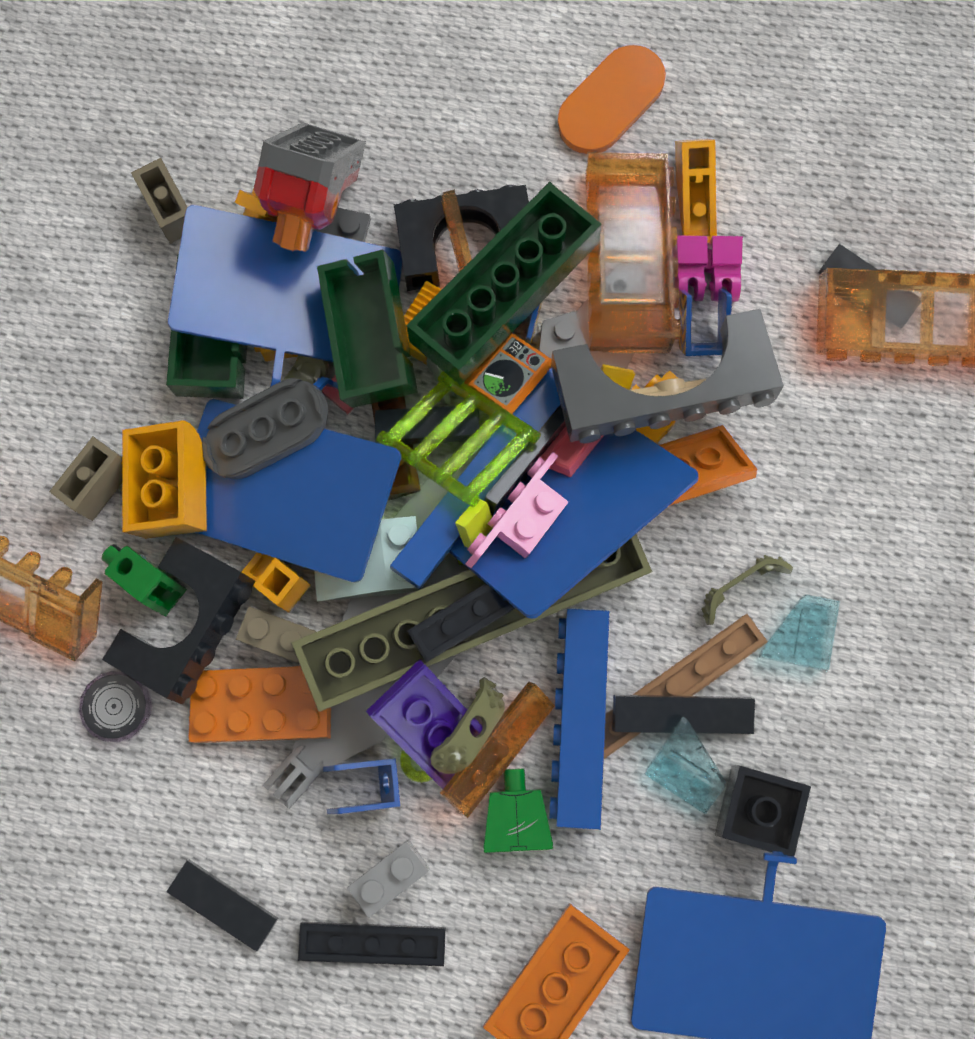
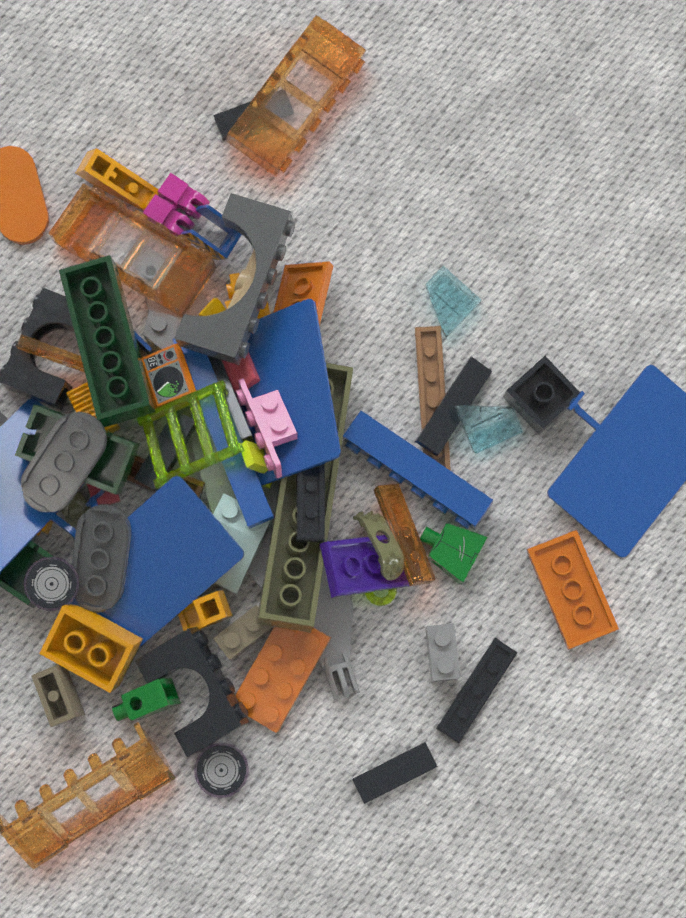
camera: 60 degrees left, 0 degrees up
(203, 393) = (51, 583): none -> tile
(340, 321) = (63, 462): none -> dark grey tile
(389, 794) = (371, 616): blue piece -> none
(762, 565) = (393, 339): olive piece -> none

